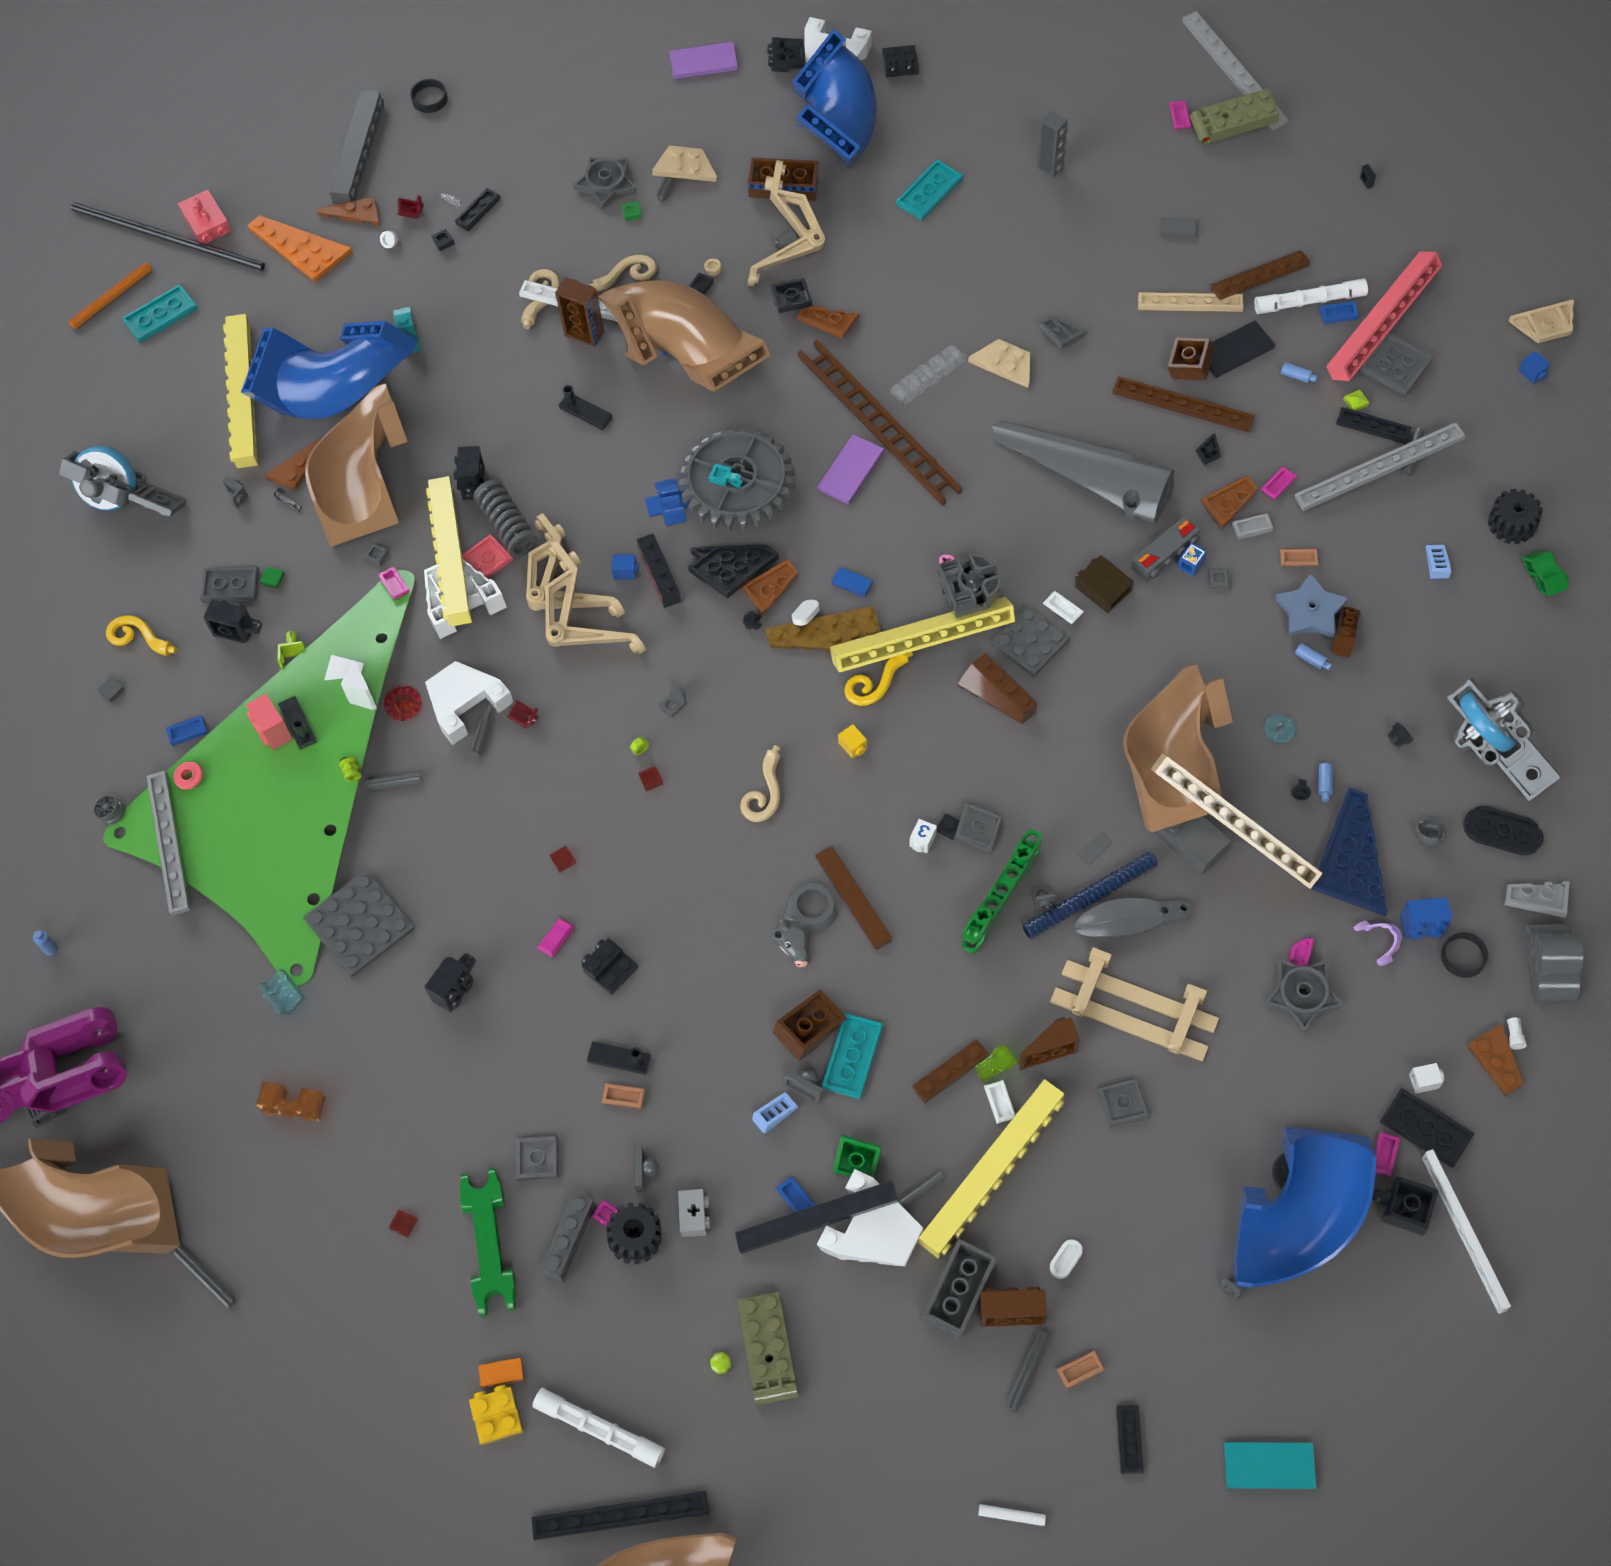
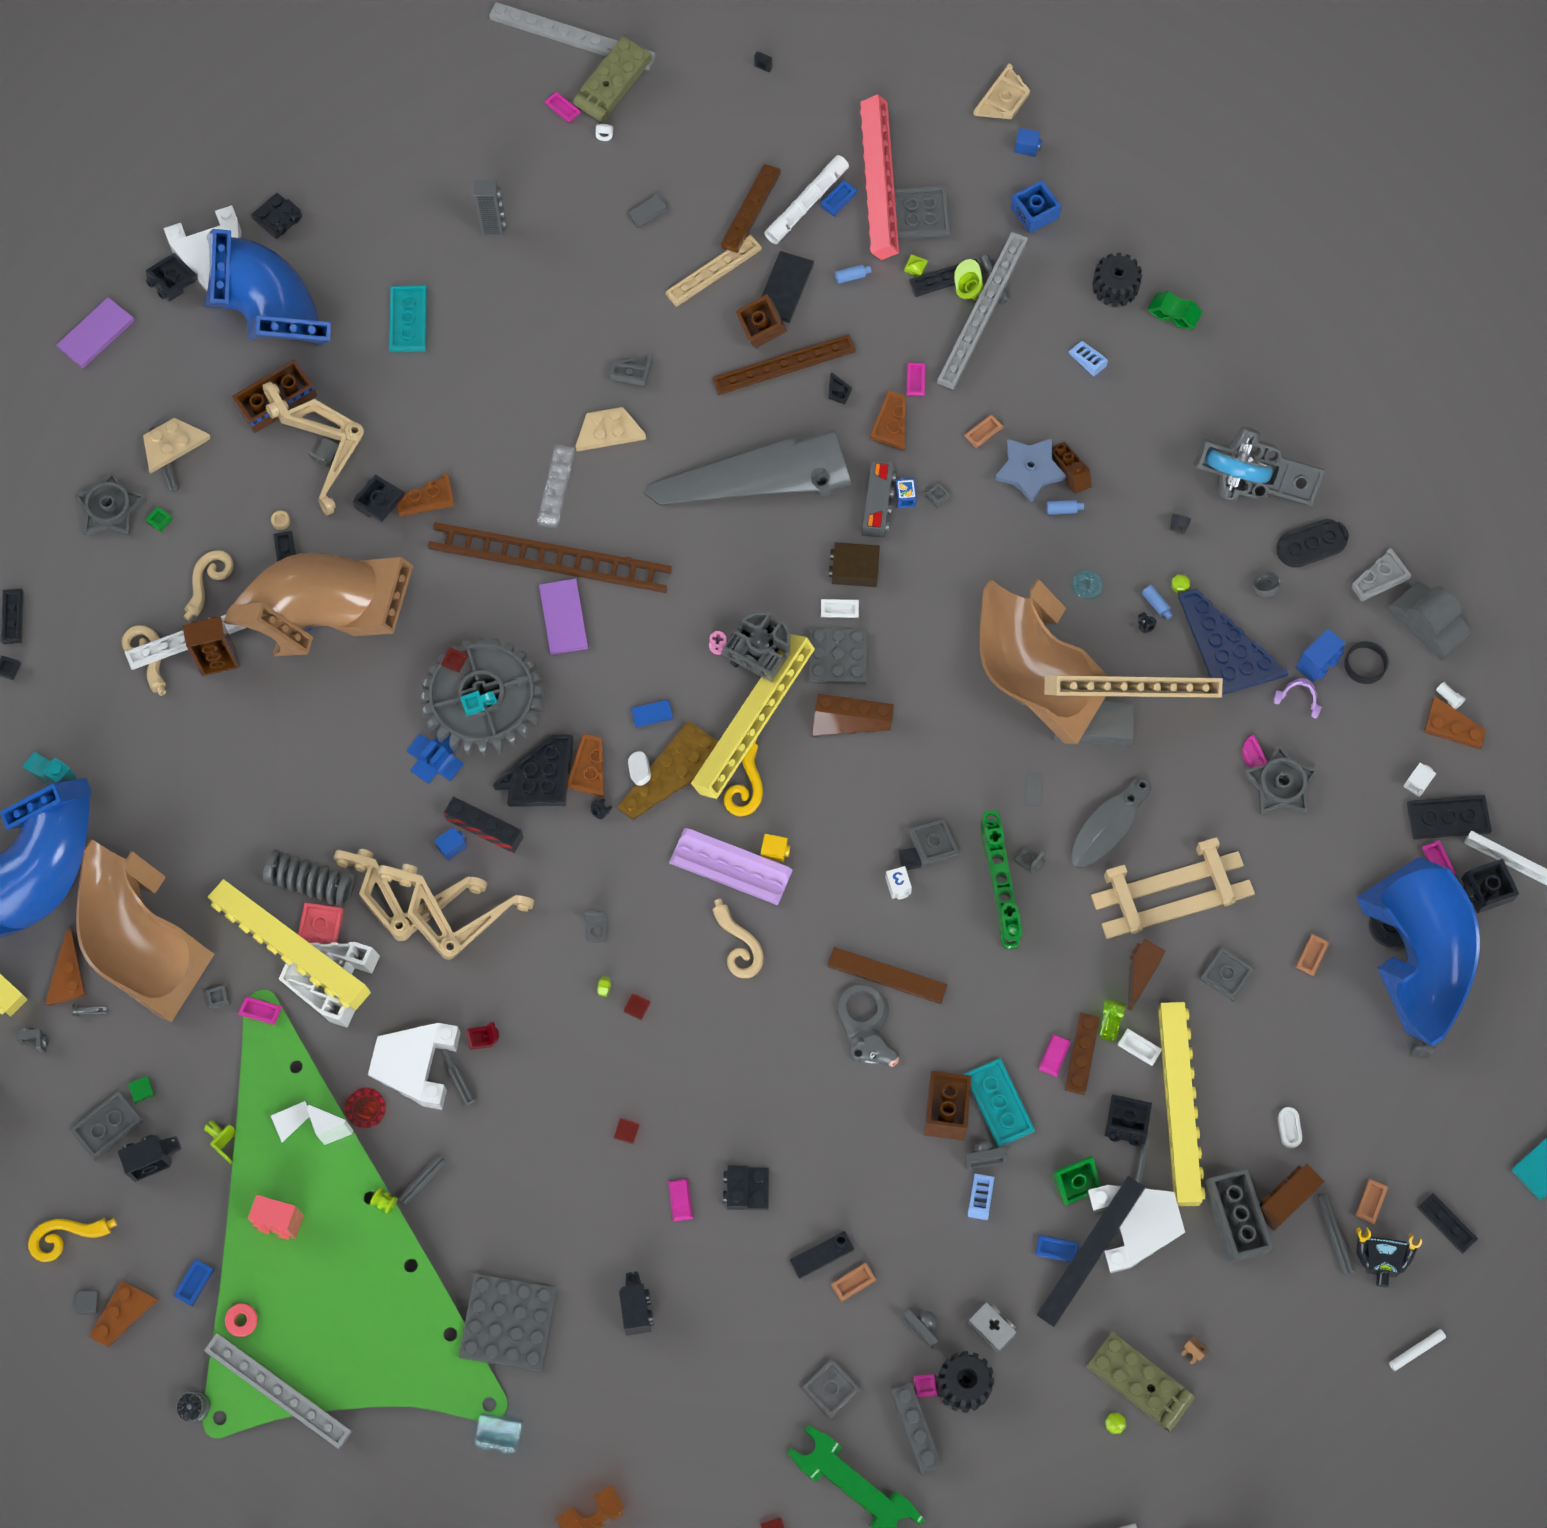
camera: 45 degrees left, 5 degrees up
(126, 712) = (121, 1311): none -> dark orange wing
(297, 723) = (304, 1200): black piece -> none
(469, 470) = (239, 862): black hinge -> none
(584, 410) = (285, 731): black piece -> none
(736, 437) = (454, 660): none -> clear red tile
(809, 731) = (731, 866): none -> lavender plate
(833, 1360) = (1196, 1348): none -> medium nougat tile
(928, 1055) = (1054, 1055): none -> dark pink tile
(938, 1147) = (1128, 1120): none -> black plate
(1050, 1418) = (1385, 1256): none -> black torso
(1090, 894) = (1064, 829): dark blue piece -> none
(1196, 148) = (604, 128): none -> white tile
(1207, 1143) = (1312, 955): none -> nougat tile
(1252, 526) = (926, 431): light grey tile -> none
(1358, 781) = (1180, 583): none -> lime tile
(1388, 436) = (968, 280): none -> lime piece
(1495, 418) = (1035, 206): none -> blue brick

